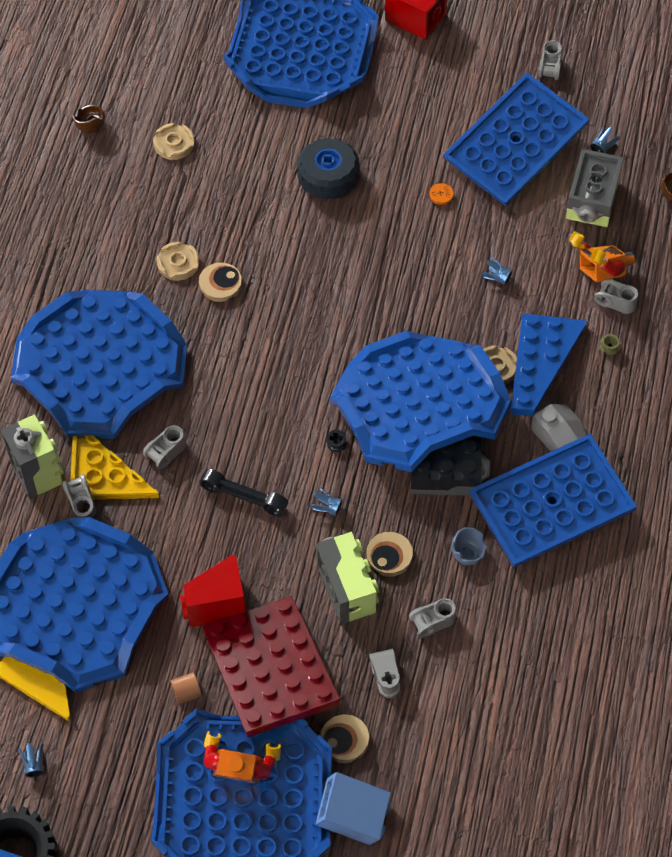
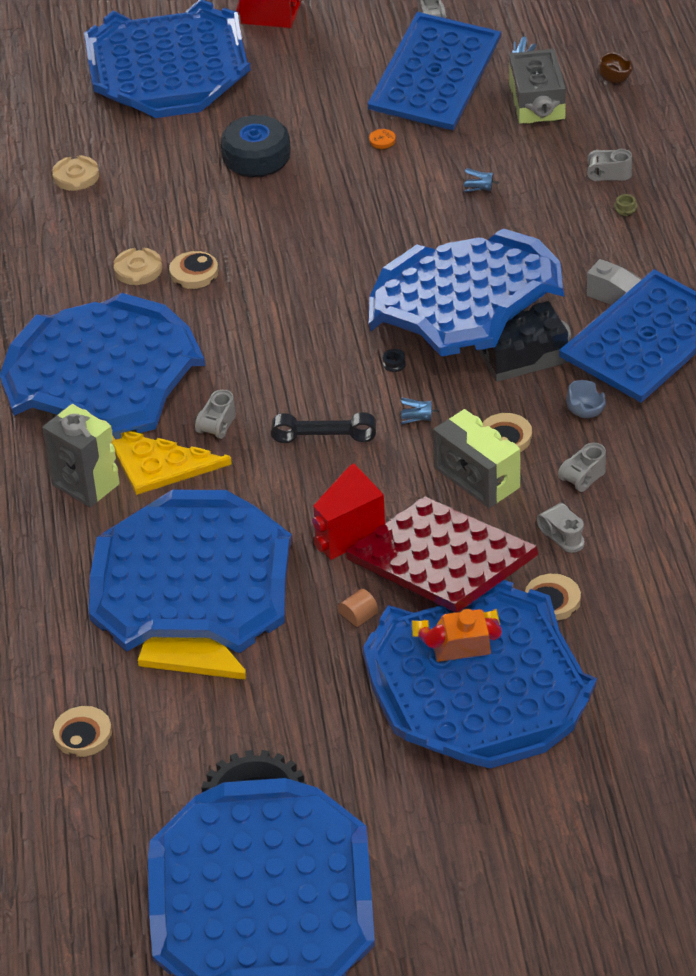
camera: 20 degrees left, 15 degrees down
(33, 767) = (233, 727): flat silver piece -> none
(79, 493) = (147, 478): light grey piece -> none
(353, 809) = (601, 643): medium blue brick -> none
(541, 354) = (564, 229): blue wing -> none
(601, 262) = (579, 140): torso -> none

